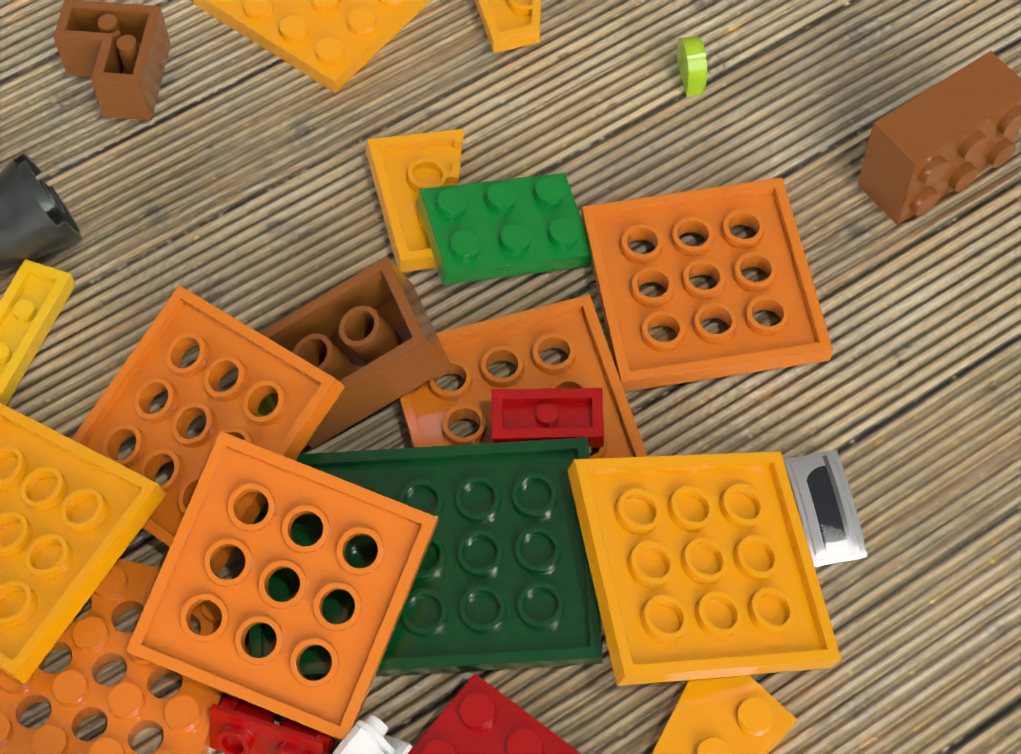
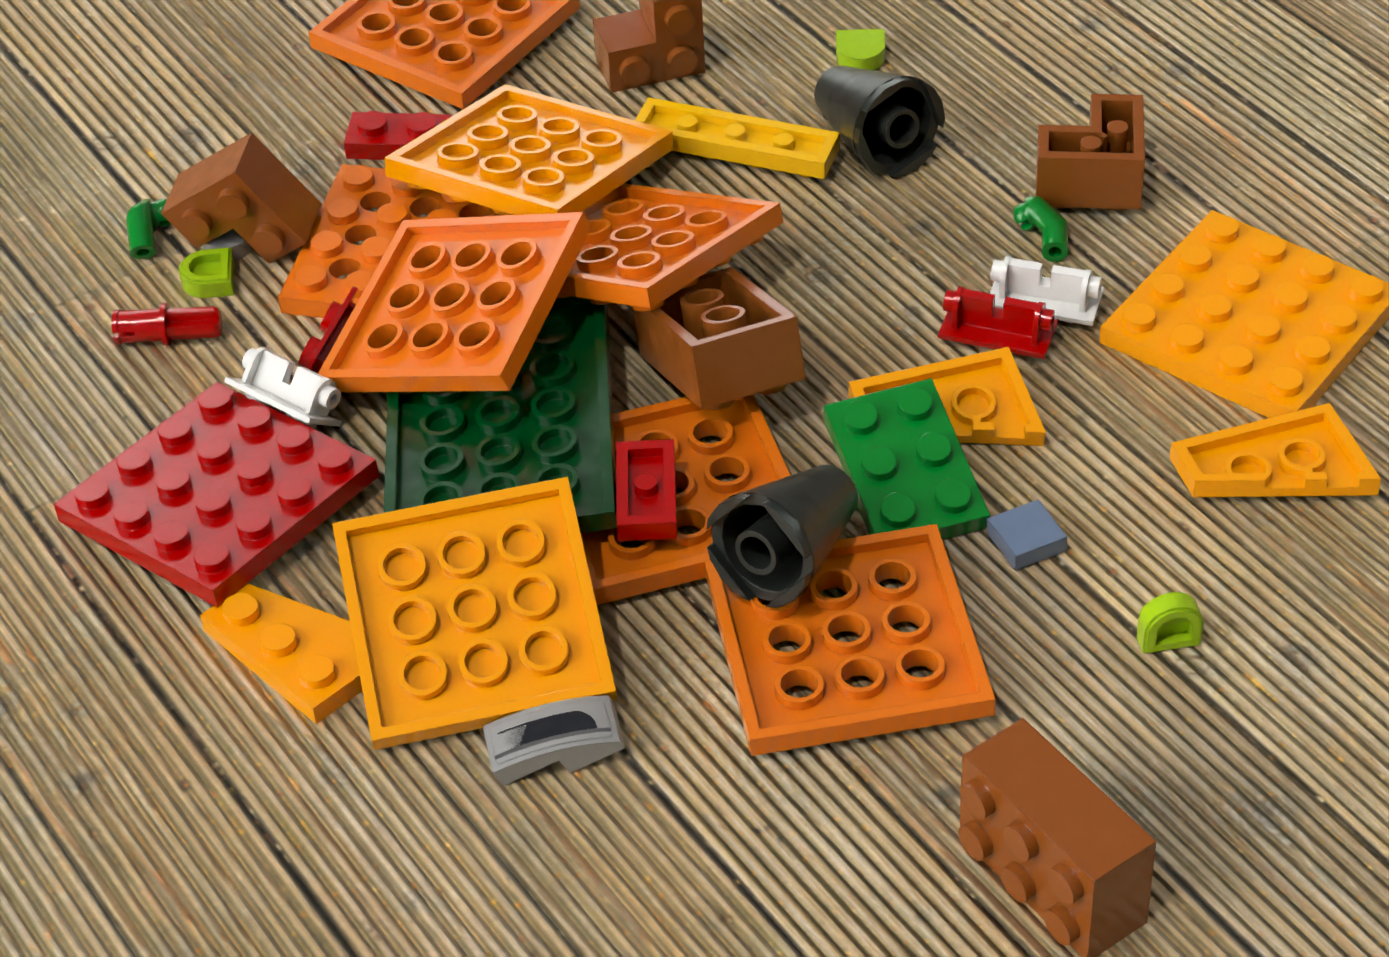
camera: 90 degrees right, 15 degrees down
(185, 107) = (1053, 226): none -> green arm
(282, 117) = (1069, 291): none -> white hinge
(320, 154) = (976, 321): none -> red hinge
(579, 153) = (1026, 534): none -> sand blue tile
(626, 294) = (780, 533): none -> pearl dark grey cone

